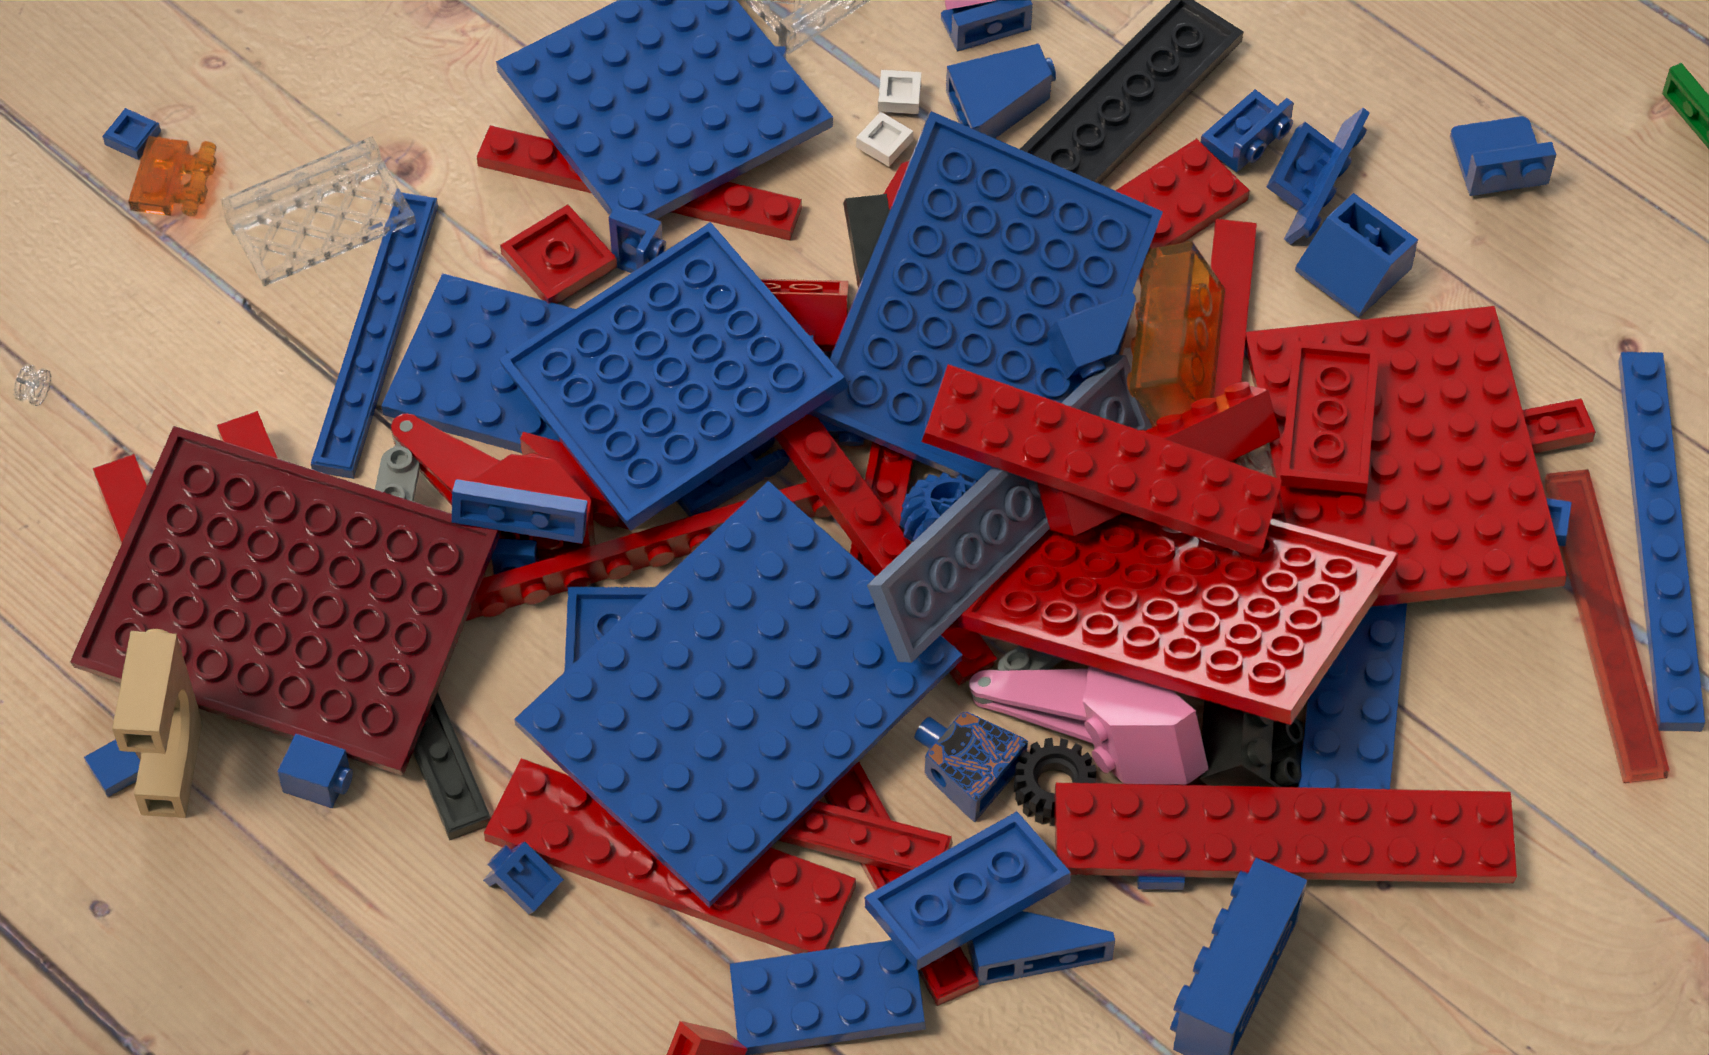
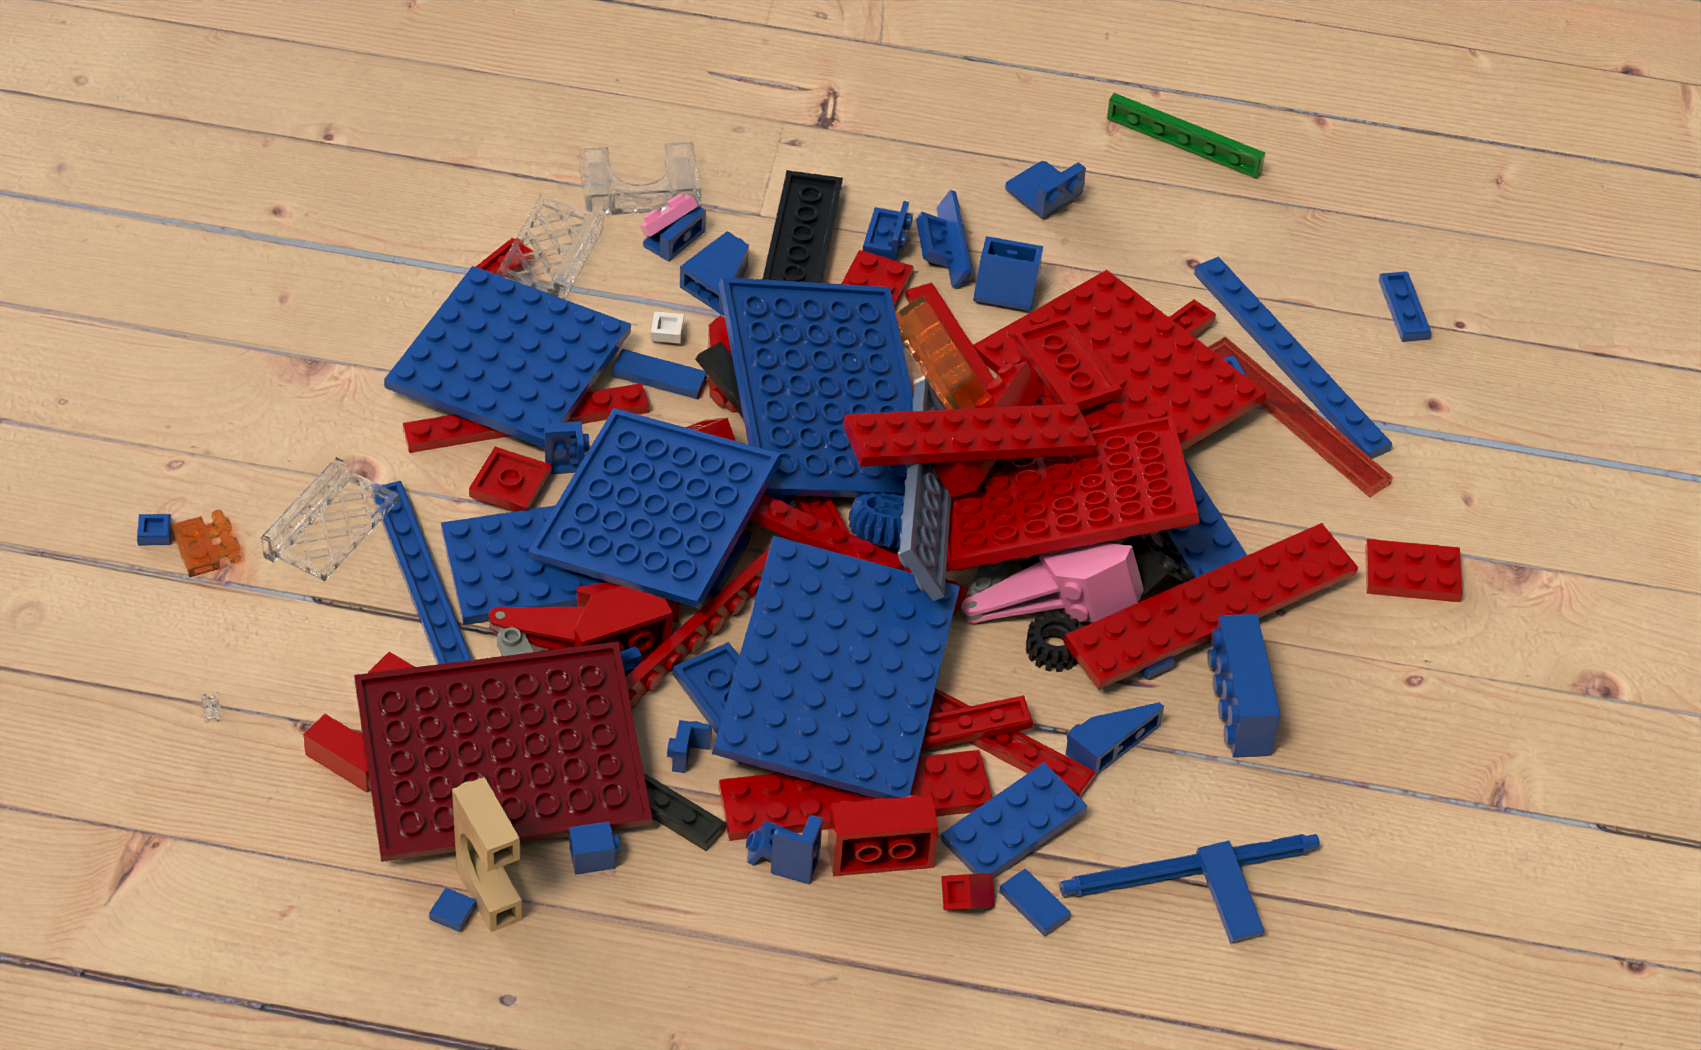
camera: 35 degrees left, 10 degrees down
(508, 693) = (688, 735): none -> blue bracket
(519, 511) = (629, 622): blue plate -> none
(540, 906) = (795, 854): none -> blue panel
(644, 931) = (882, 835): none -> red brick
(820, 184) = (659, 373): none -> blue tile
(899, 91) = (655, 296): white plate -> none
(967, 890) = (1061, 717): blue plate -> none
(970, 760) = (996, 652): blue torso -> none
(1091, 336) = (900, 376): blue slope -> none
(1602, 914) = (1413, 570): none -> red plate

